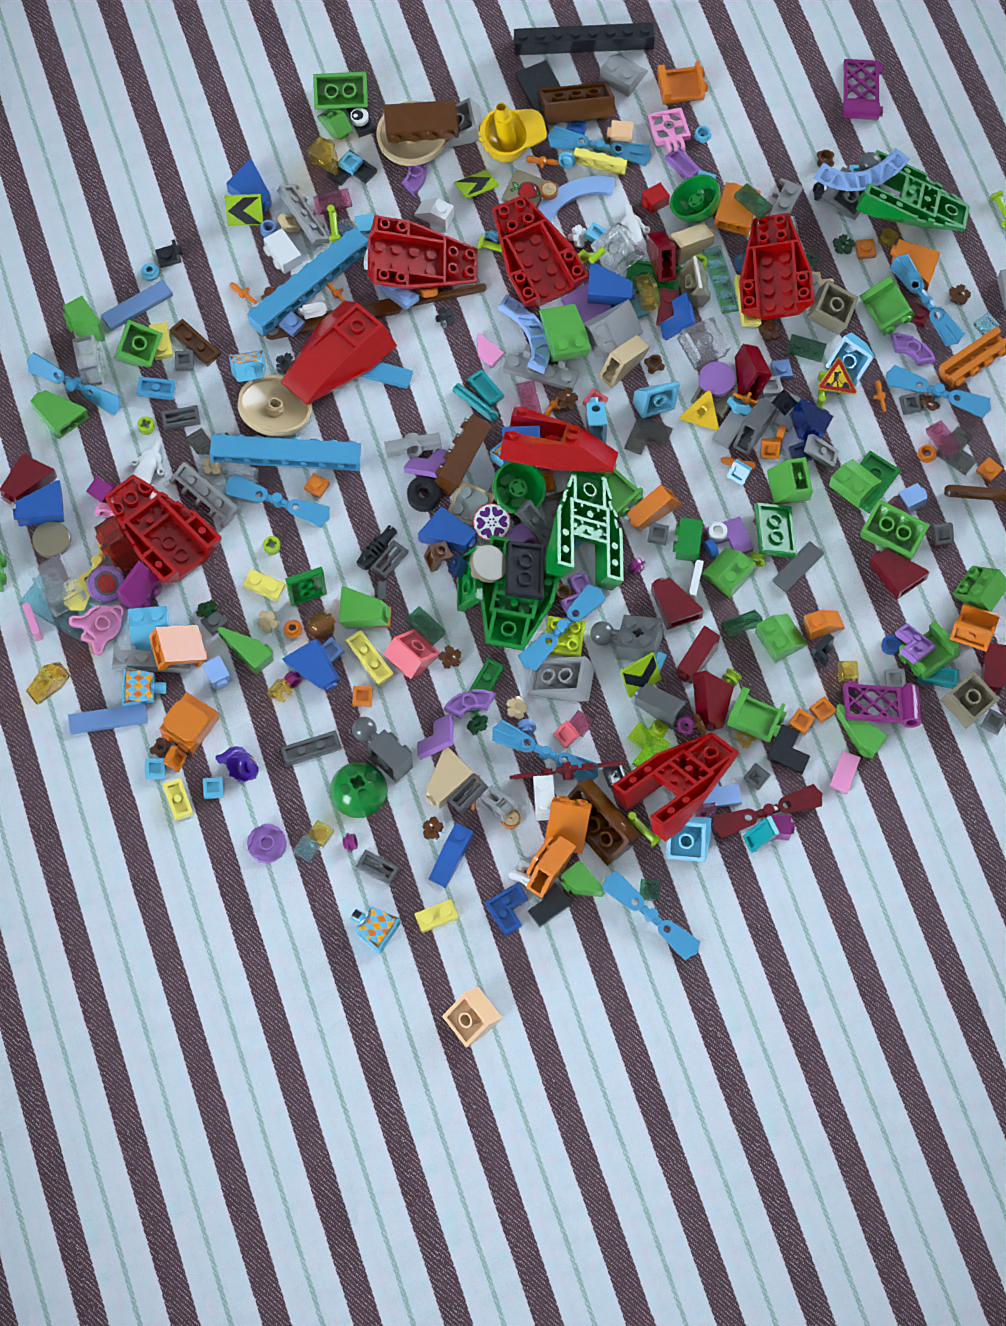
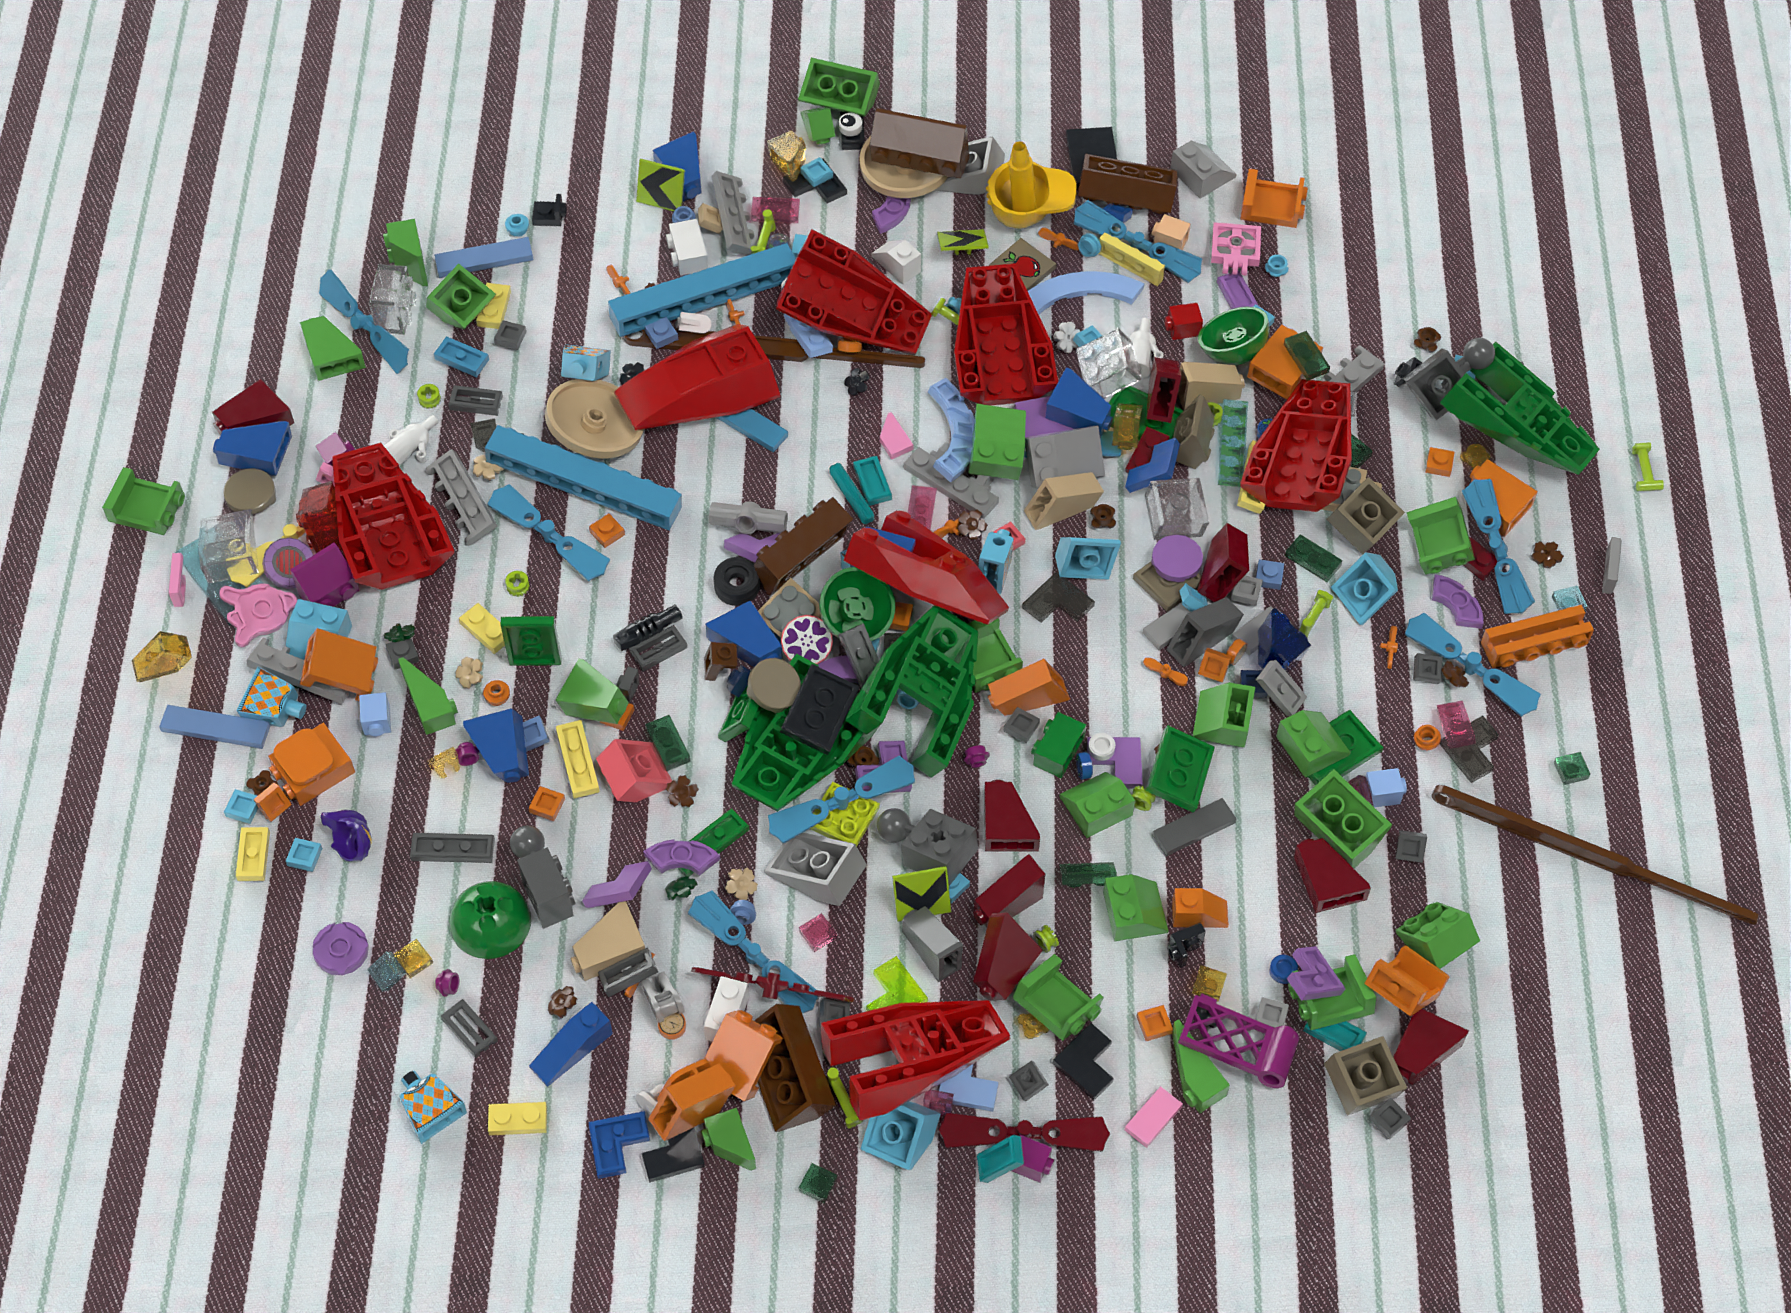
camera: 20 degrees right, 10 degrees down
(194, 341) = (534, 318): reddish brown tile -> none
(243, 471) = (526, 487): clear tile -> none
(321, 625) = (534, 698): clear orange head -> none
(472, 1016) = (503, 1268): light nougat slope -> none
(549, 190) = (1051, 273): tile -> none
(566, 734) = (792, 939): coral tile -> none
(584, 38) = (1168, 115): black brick -> none
(592, 256) = (1064, 361): lime piece -> none
(624, 892) = (830, 1262): dark azure piece -> none
(658, 729) = (918, 973): lime bush -> none
(681, 724) = (953, 977): magenta plate -> none
(695, 579) = (1047, 798): white tile -> none
(699, 724) = (973, 983): reddish brown plant -> none
(702, 412) = (1142, 594): yellow piece -> none
(739, 472) = (1161, 682): plate -> none
(746, 398) = (1205, 593): orange piece -> none
(769, 331) = (1272, 522): reddish brown plant -> none
(784, 402) = (1254, 612): black bracket -> none
(801, 721) = (1119, 1028): orange plate -> none
(837, 380) = (1339, 607): piece -> none
(843, 244) = (1412, 448): dark green plant -> none
(858, 180) = (1453, 367): light blue tile -> none
(861, 106) = (1498, 291): magenta piece -> none
(989, 470) = (1506, 785): orange plate -> none

